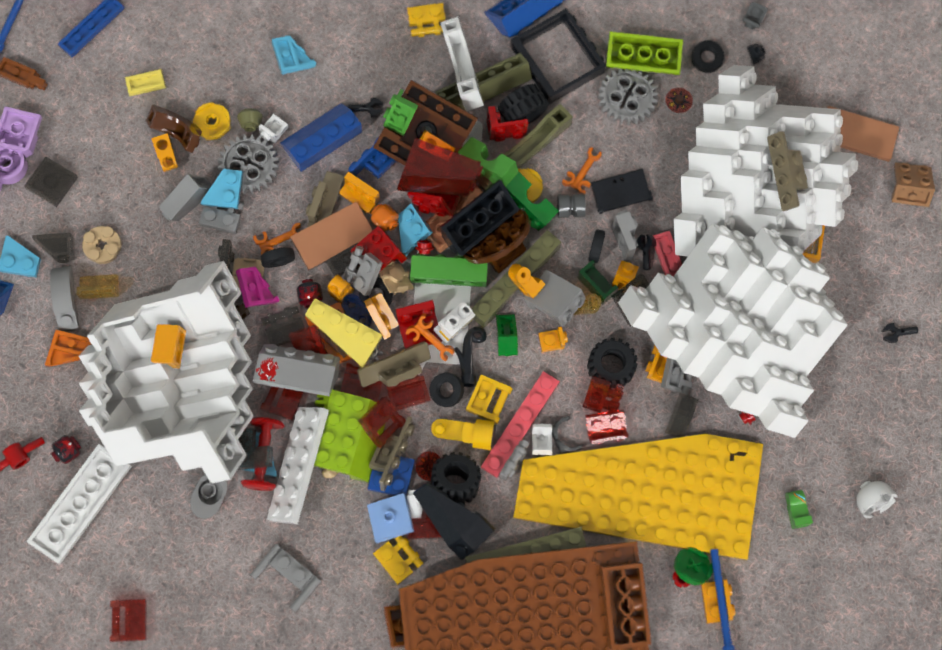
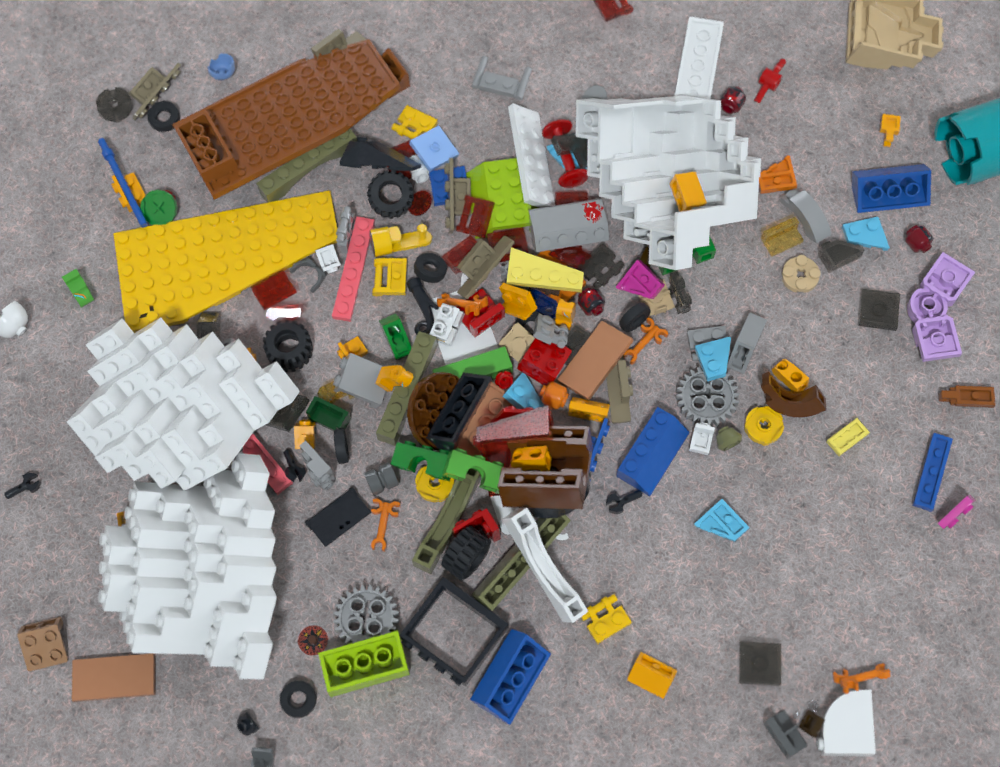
camera: 165 degrees right, 5 degrees down
(400, 114) = (573, 459): bright green bracket -> none
(787, 170) = (164, 544): dark tan bracket -> none

